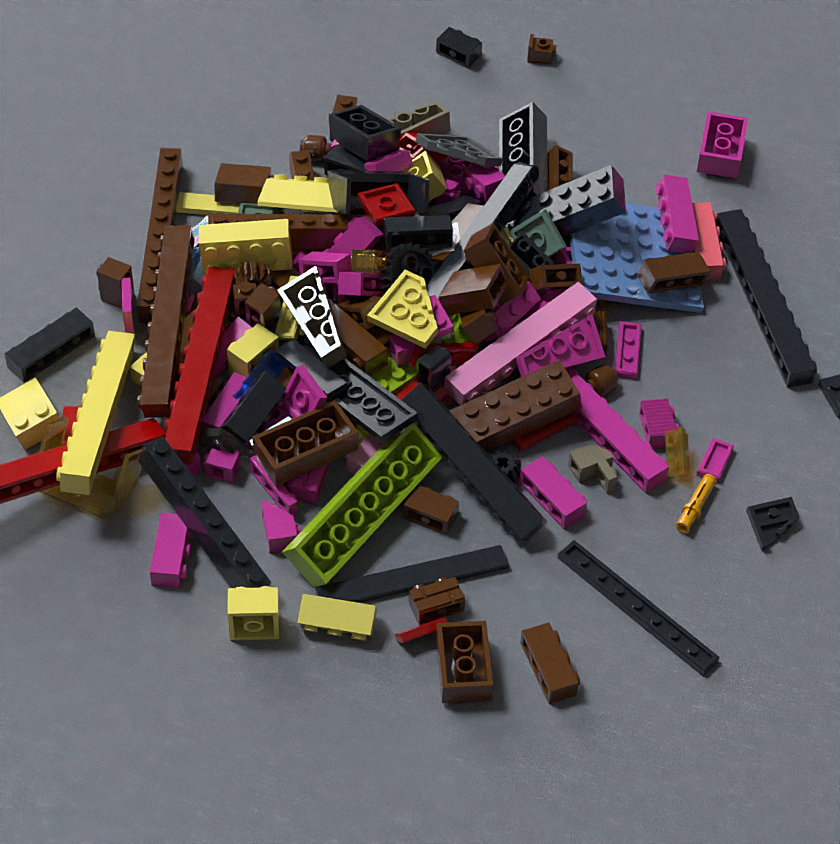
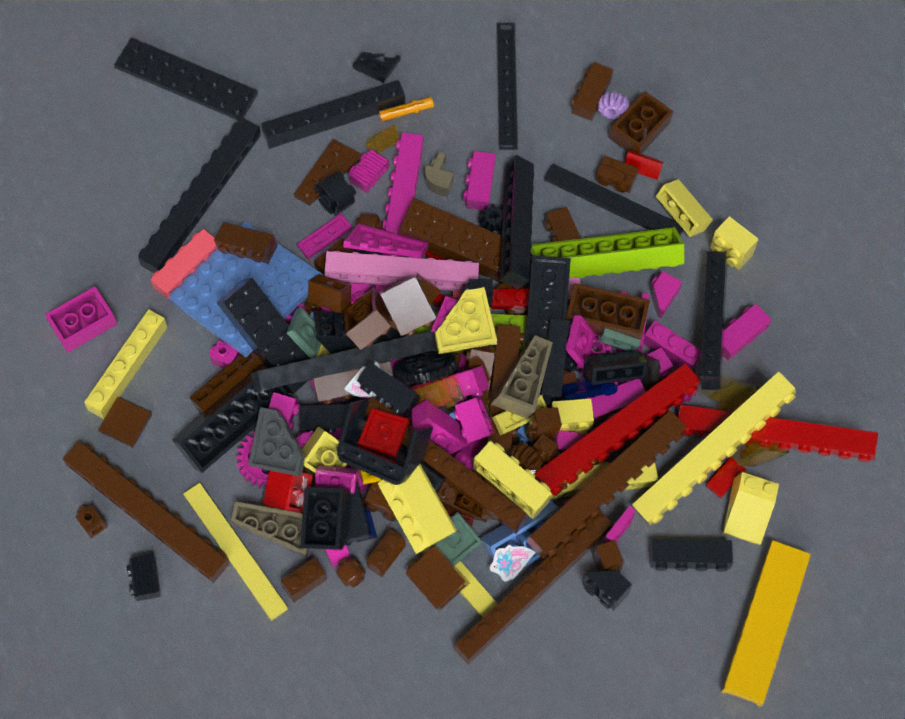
camera: 135 degrees left, 15 degrees up
(88, 258) = (608, 587): none -> black slope
(229, 483) = (675, 347): none -> dark pink brick
(396, 103) = (235, 551): none -> light yellow tile
(510, 79) = (146, 512): none -> reddish brown brick
(510, 657) = (613, 105): none -> lavender gear
(601, 120) = (125, 422): none -> reddish brown tile
(647, 139) = (126, 364): none -> light yellow brick
(658, 373) = (335, 193): none -> black brick
(677, 214) = (186, 285): dark pink brick -> none
(693, 400) = (334, 159): none -> reddish brown wing
(715, 459) = (361, 126): dark pink tile -> none
(747, 444) = (332, 114): none -> black brick

